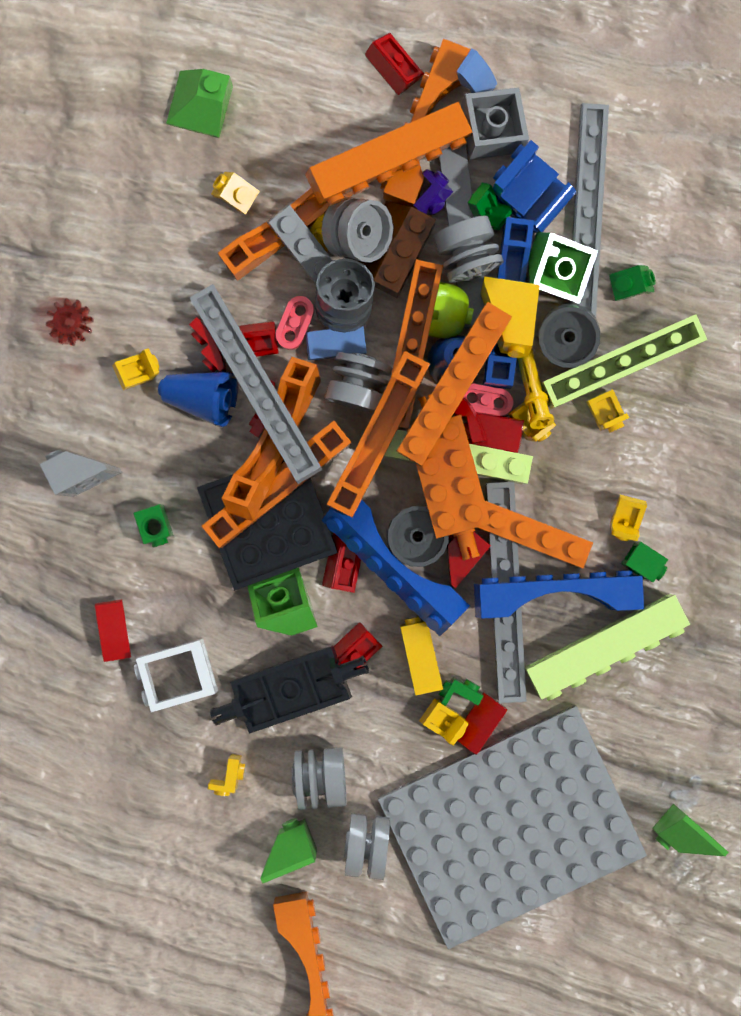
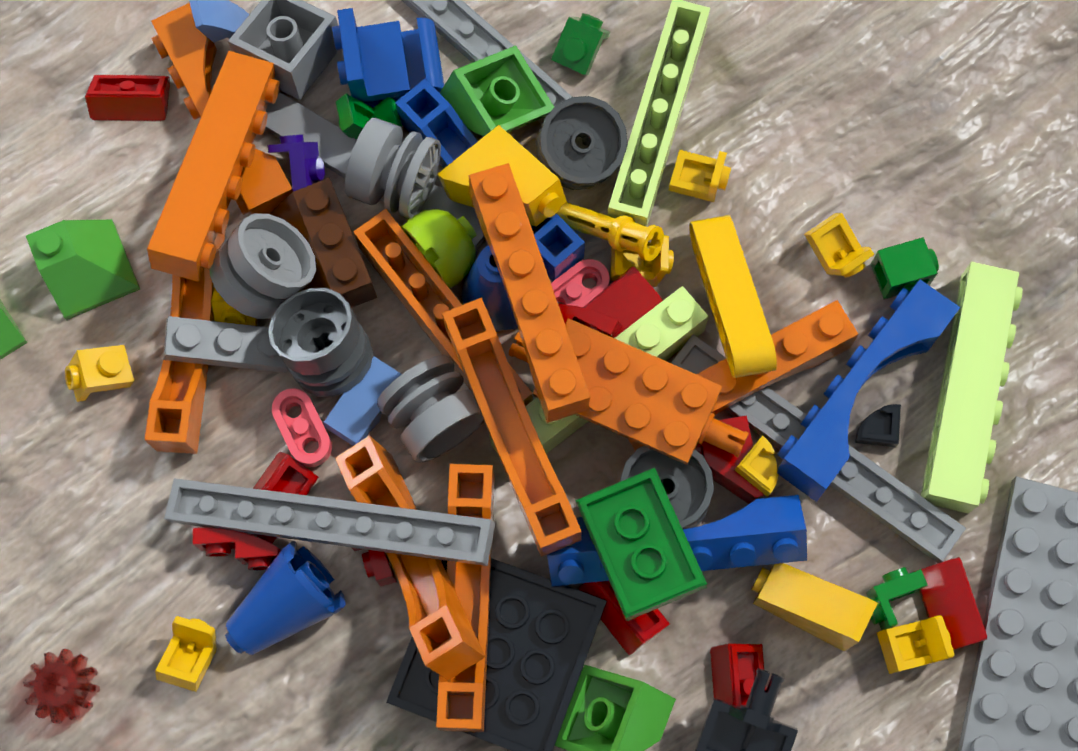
camera: 50 degrees left, 15 degrees down
(282, 129) = (82, 264): none -> bright green slope
(375, 549) = (641, 544): none -> green tile
(468, 574) = (760, 466): none -> yellow tile
(547, 617) = (881, 427): none -> black tile
(549, 486) = (732, 297): none -> yellow beam

